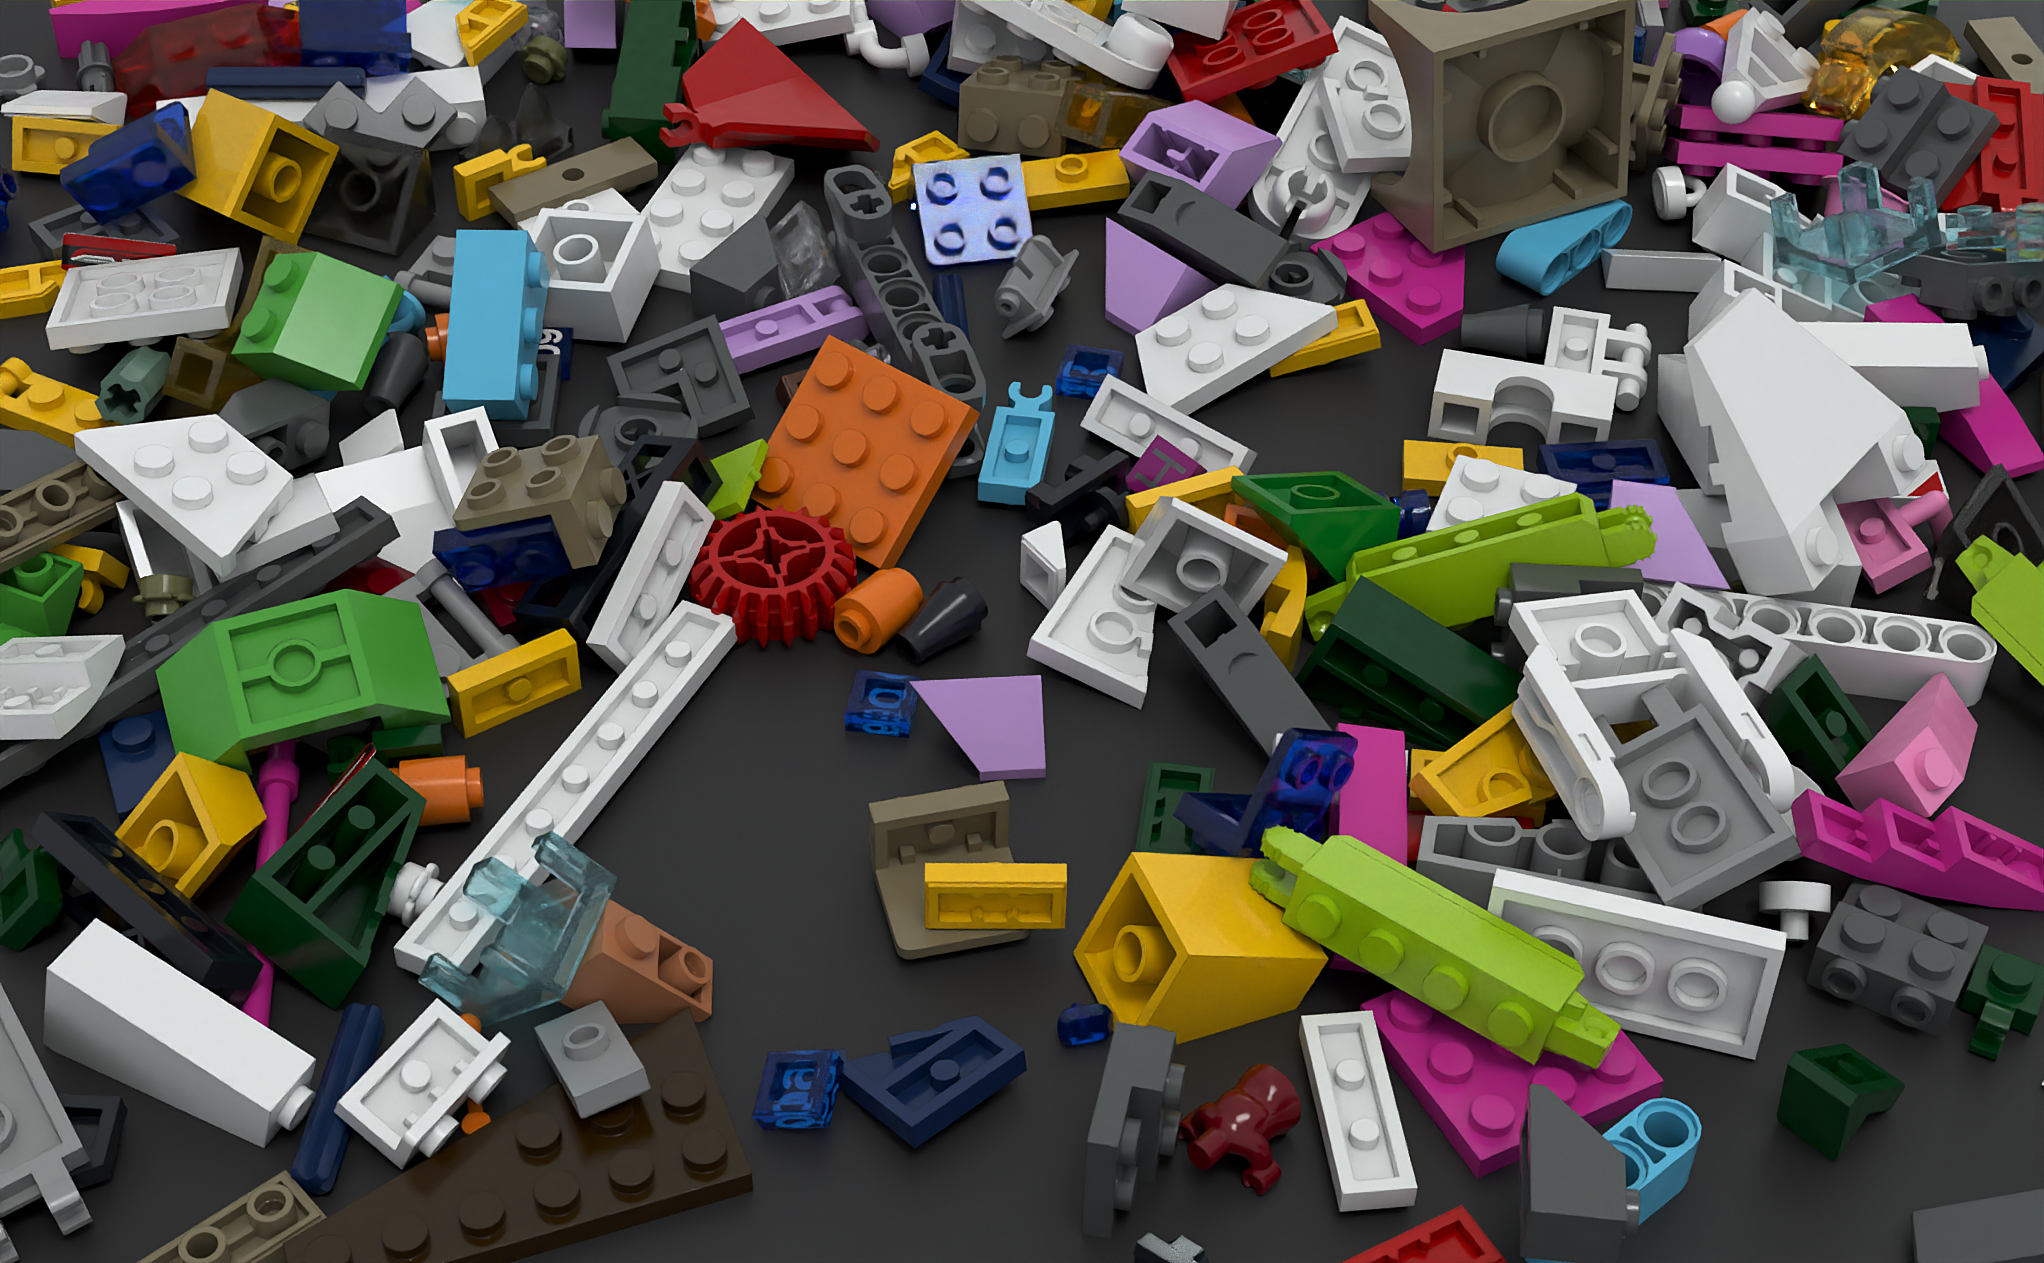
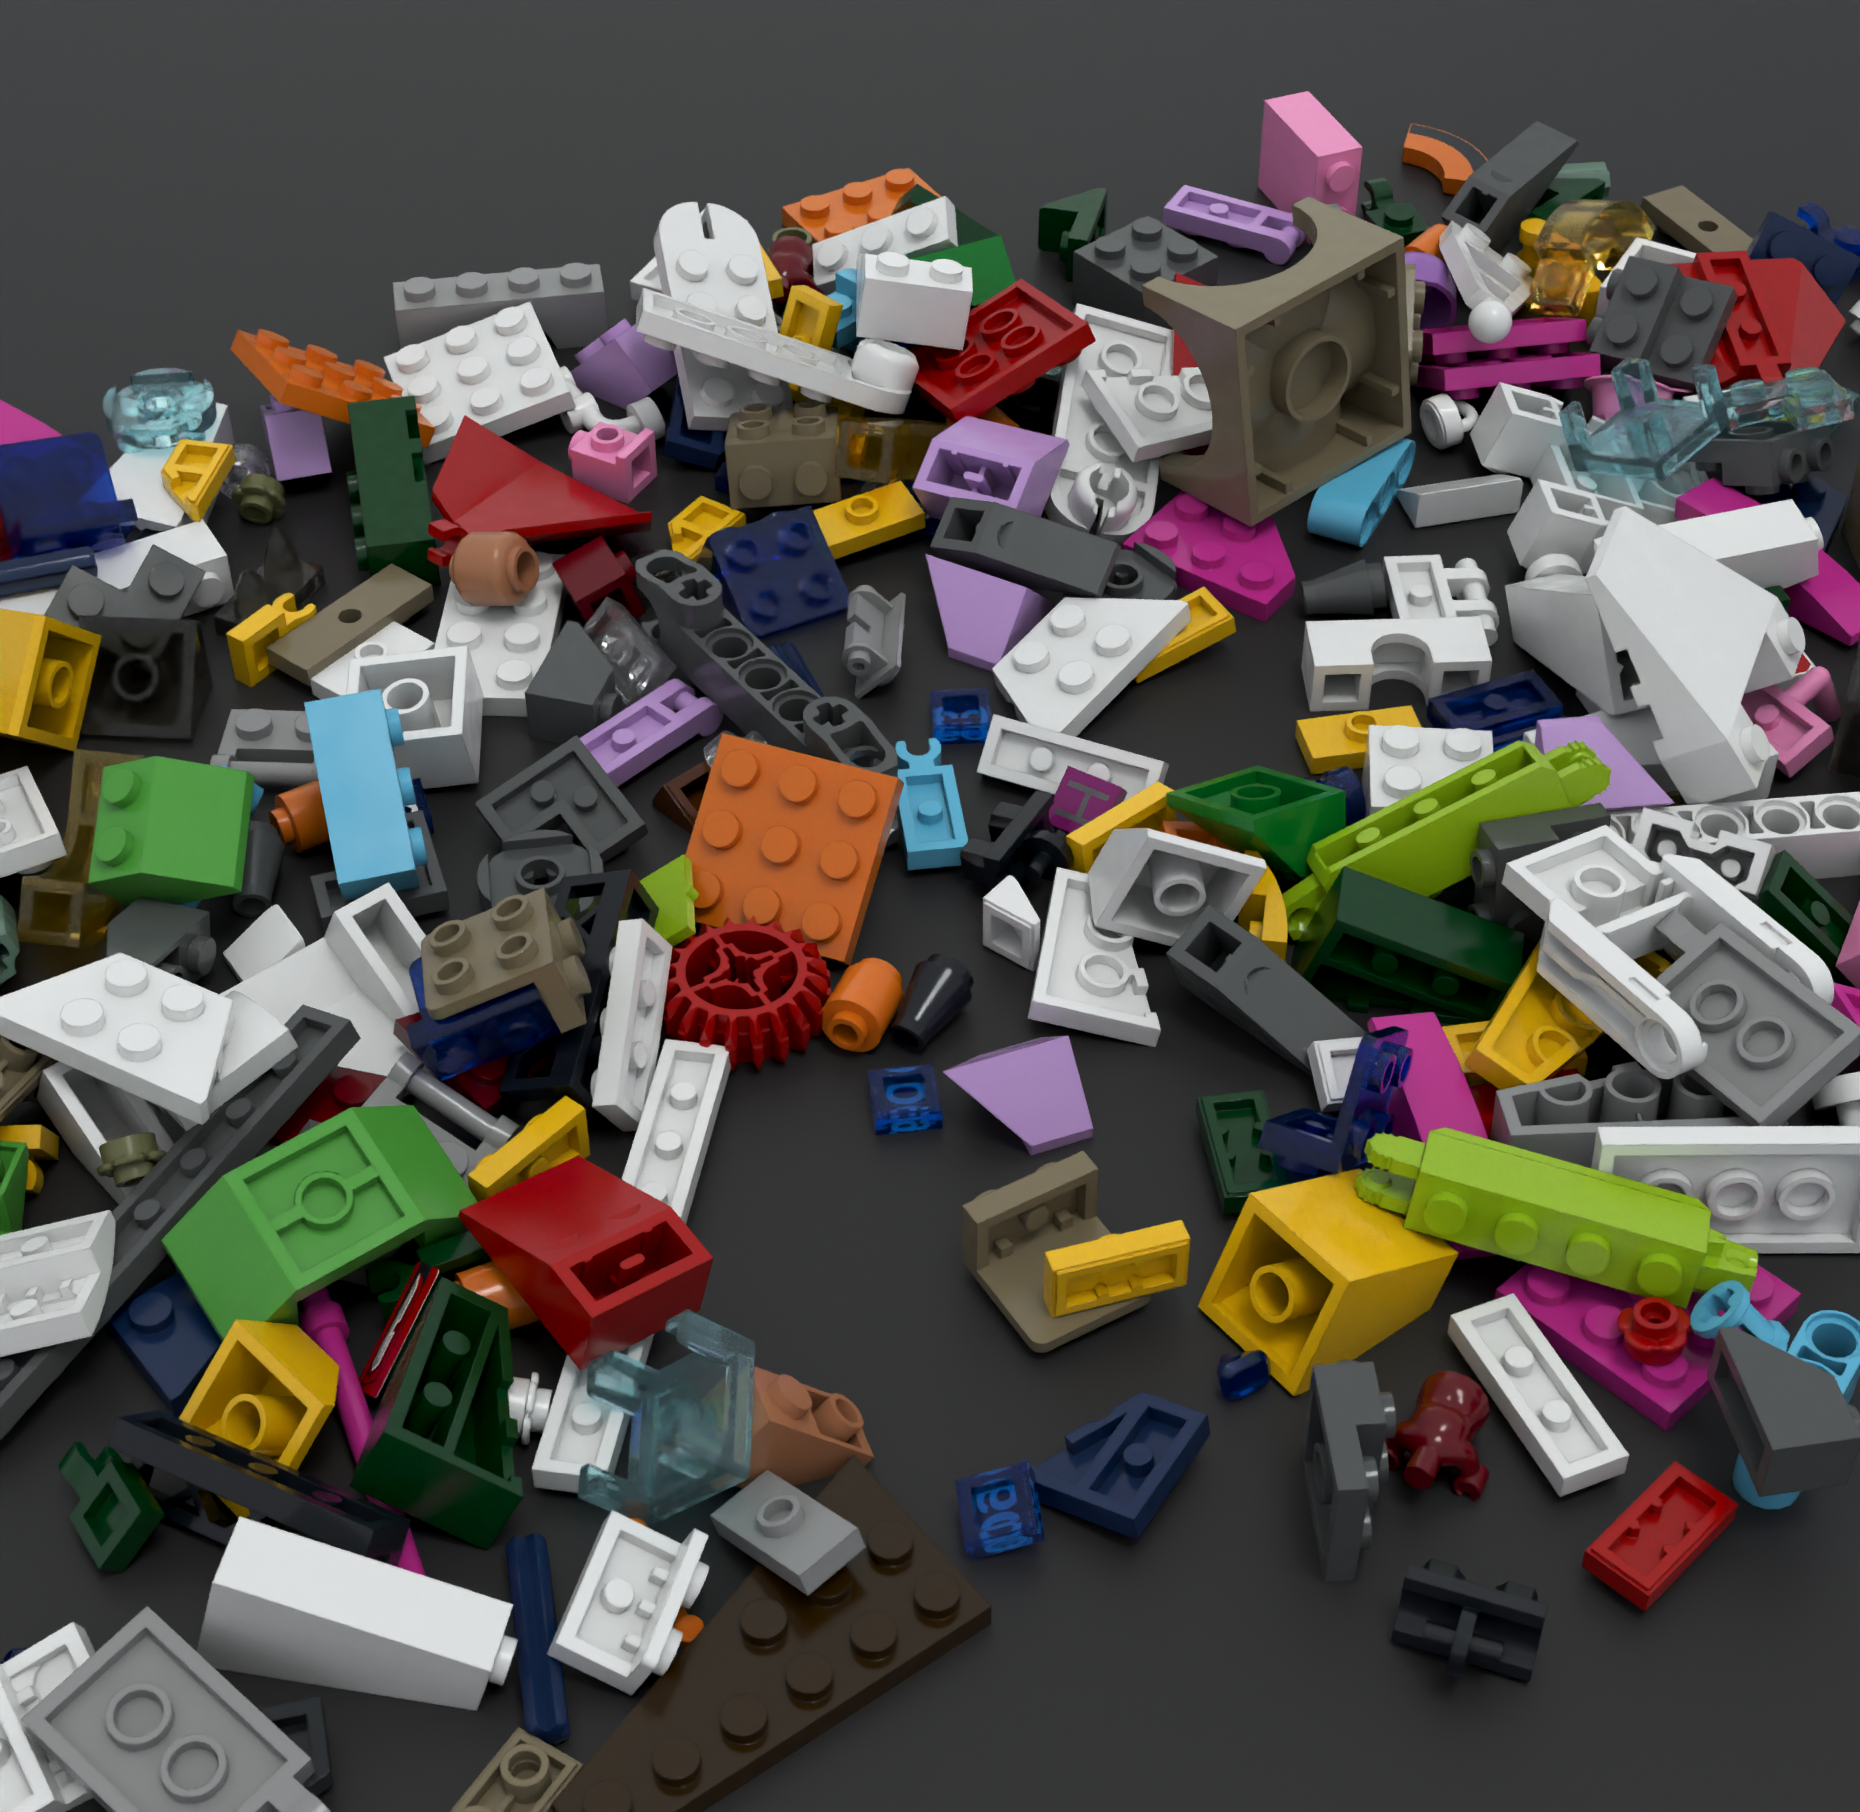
camera: 15 degrees left, 0 degrees up
(514, 770) = (592, 1256): none -> red slope
(709, 155) = (494, 568): none -> nougat head
(800, 178) = (597, 573): none -> dark red brick
(866, 76) = (614, 460): none -> bright pink brick
(1489, 1077) = (1654, 1331): none -> red plate
(1566, 1070) = (1739, 1312): none -> medium azure bush

